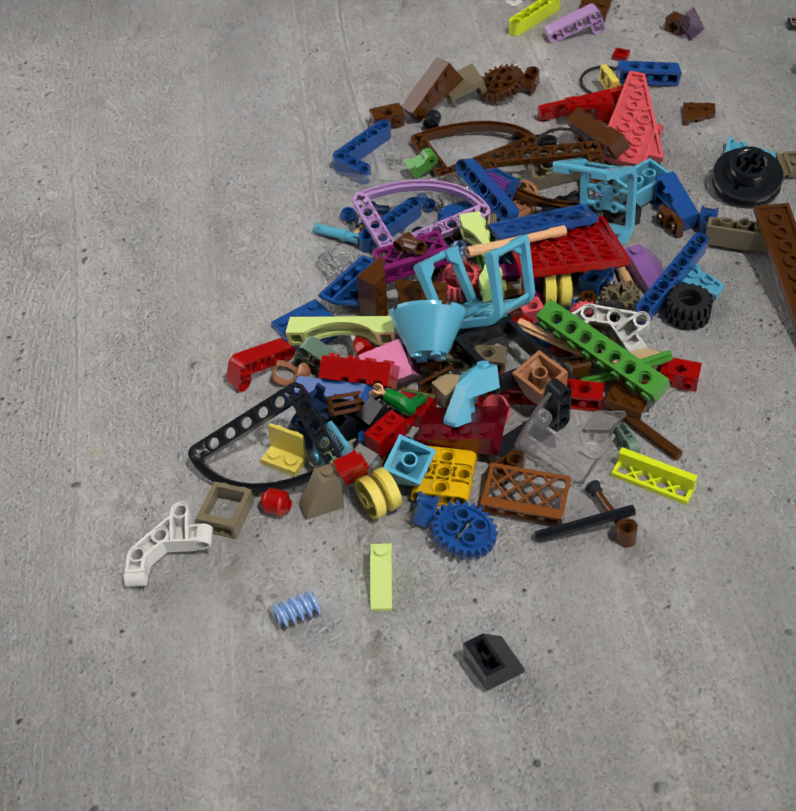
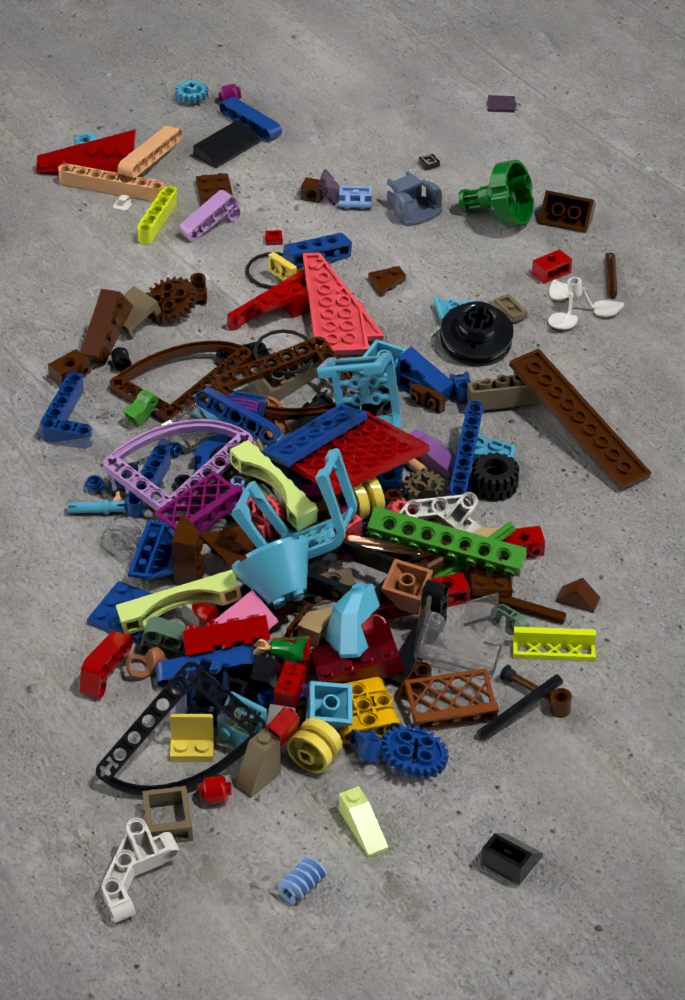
camera: 30 degrees left, 5 degrees down
(356, 401) = (243, 666): reddish brown tile -> none
(409, 243) = (193, 493): reddish brown piece -> none
(480, 249) = (276, 477): light nougat piece -> none
(612, 141) = (311, 326): reddish brown wedge -> none
(705, 439) = (579, 595): none -> reddish brown slope
(711, 37) = (355, 197): none -> light blue plate
(756, 53) = (410, 204): none -> sand blue piece

